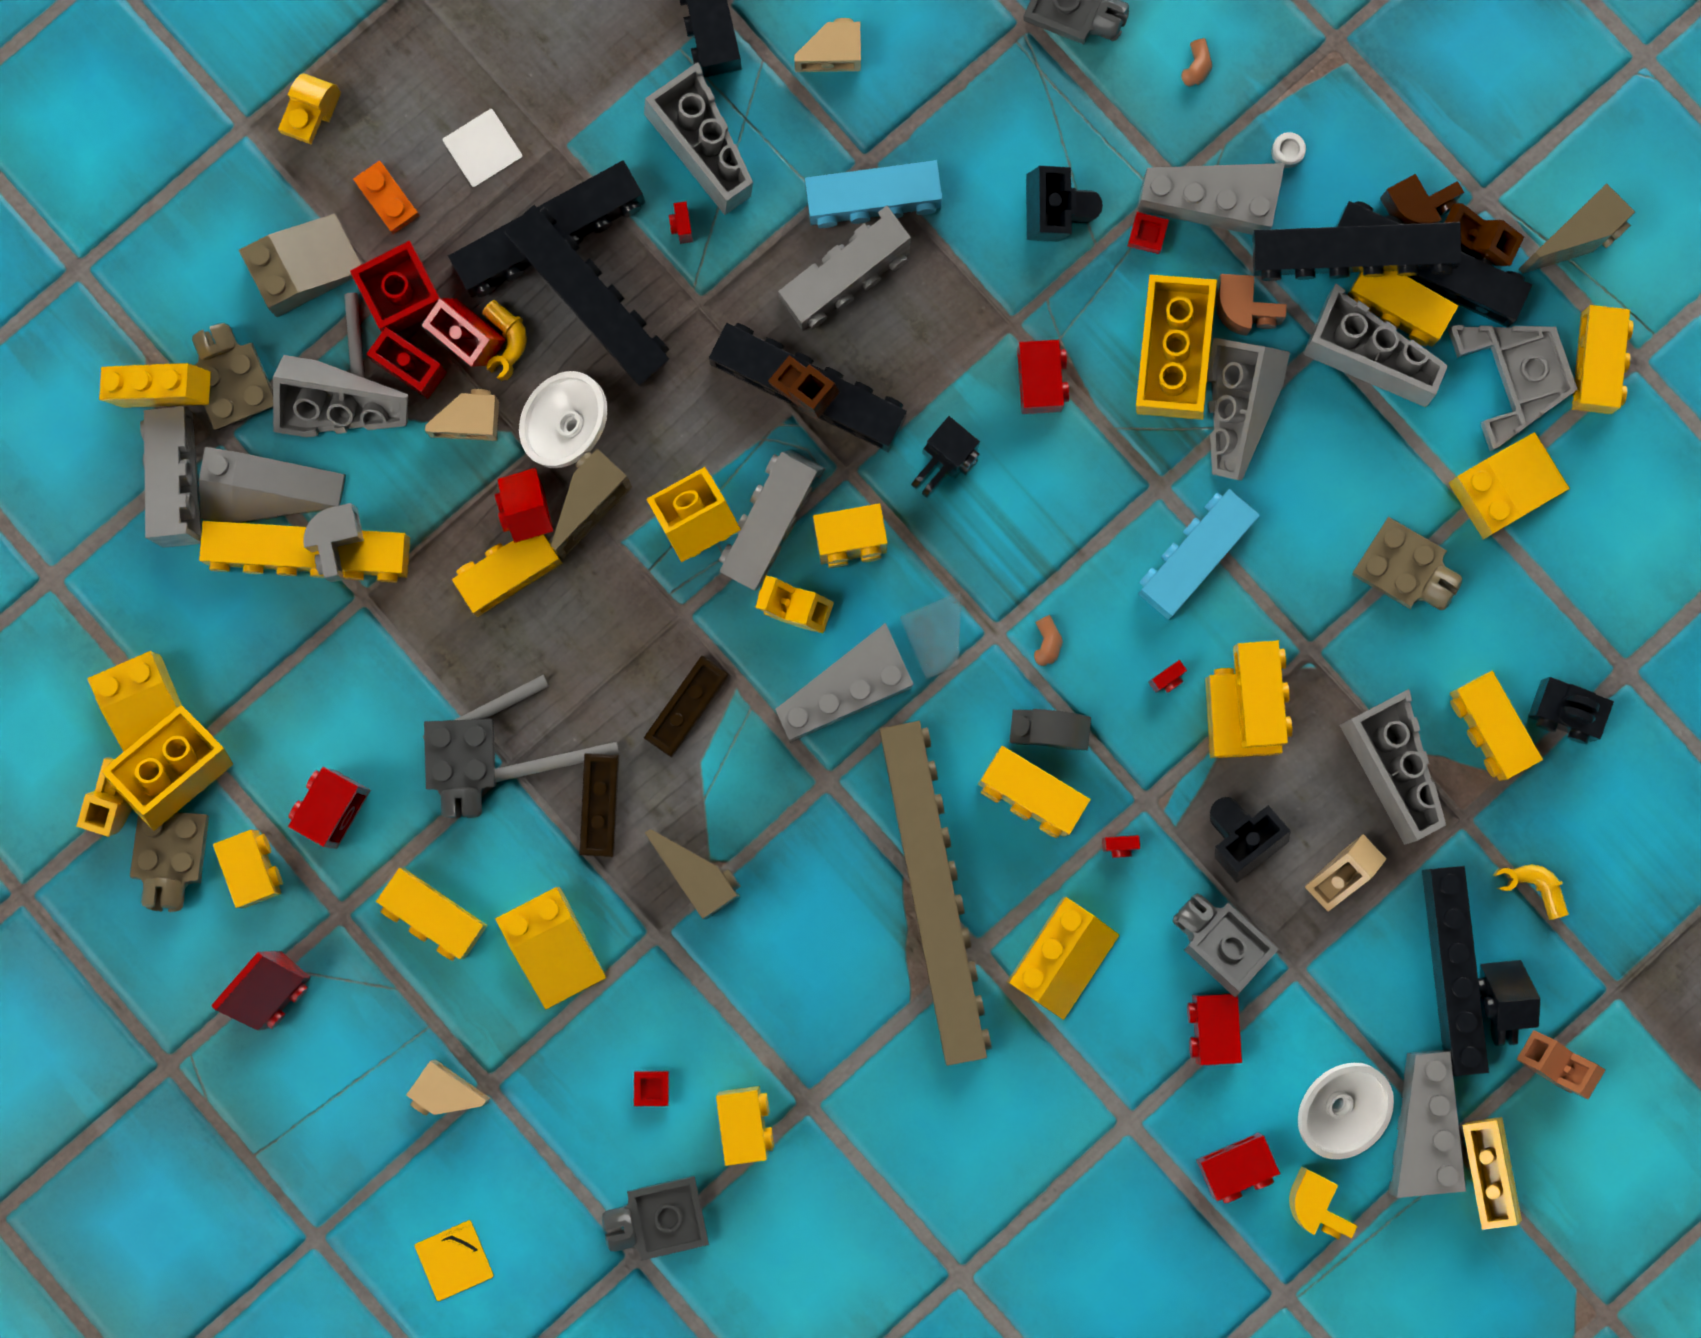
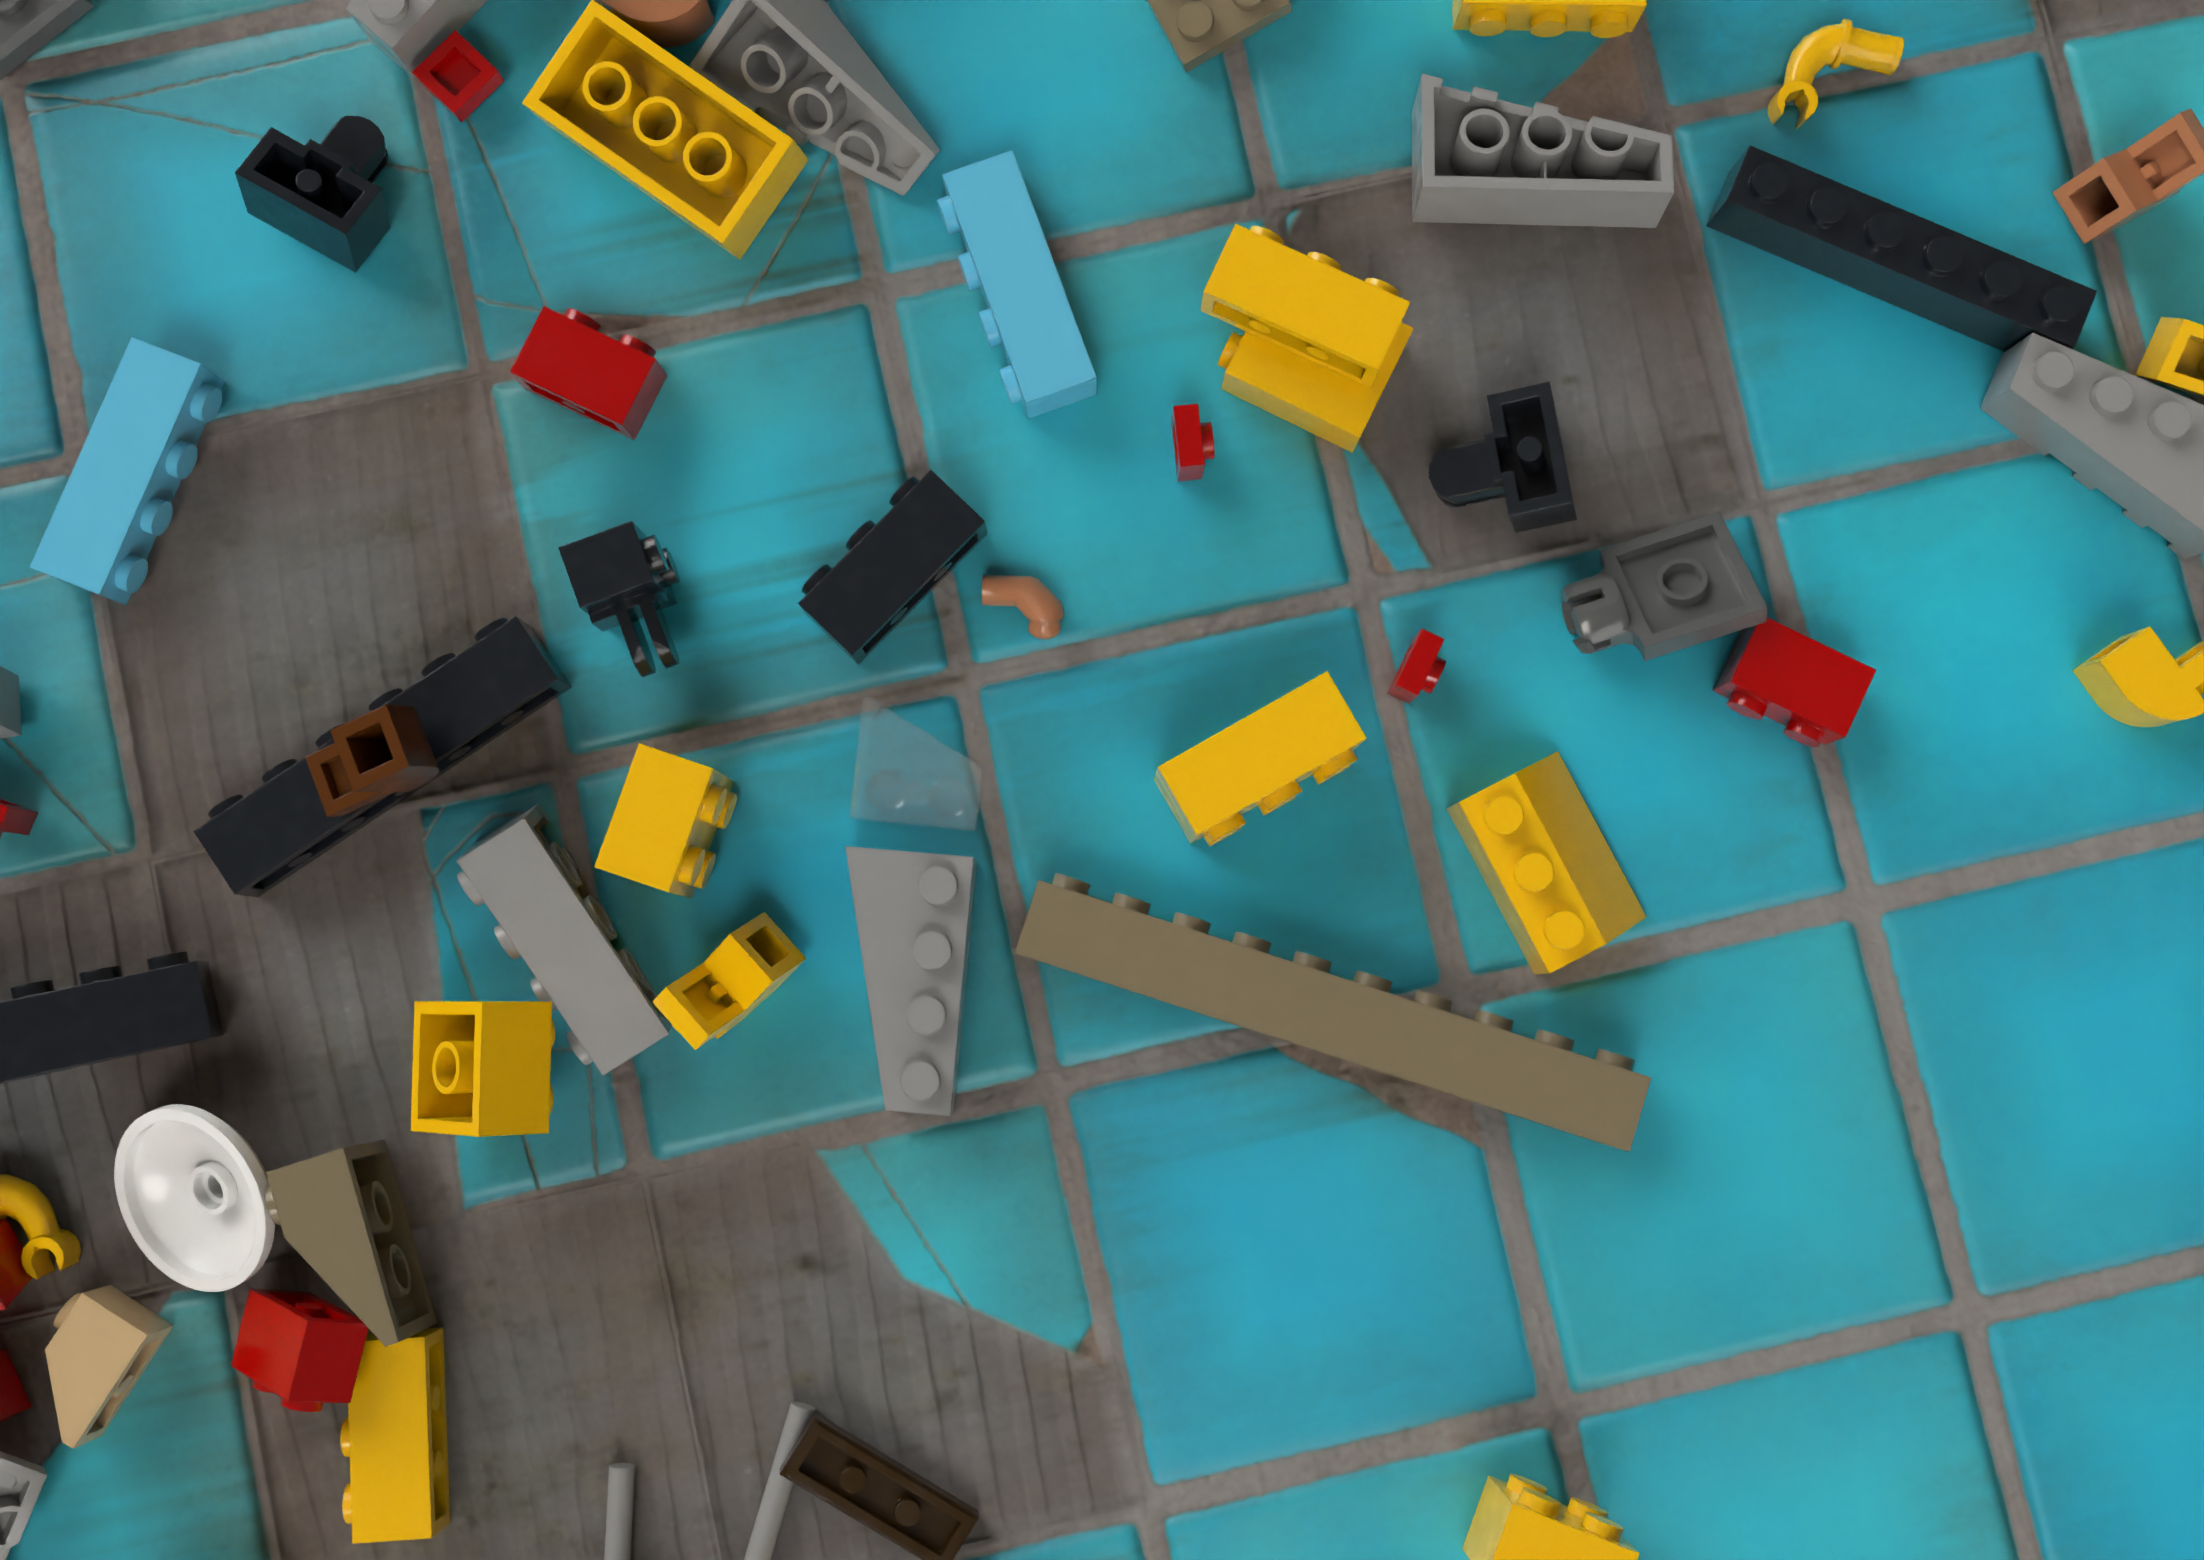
camera: 65 degrees left, 0 degrees up
(686, 706) = (798, 1252): dark brown tile -> none
(701, 880) = (1095, 1398): dark tan slope -> none
(847, 270) = (227, 582): light grey wedge -> none
(1029, 569) = (892, 565): none -> black brick
(1050, 729) = (1169, 676): dark grey brick -> none
(1238, 1168) = (2032, 769): red brick -> none
(1345, 1111) = (2035, 549): white dish -> none
(1346, 873) = (1654, 338): tan slope -> none
(1508, 1000) = (1998, 195): black brick -> none

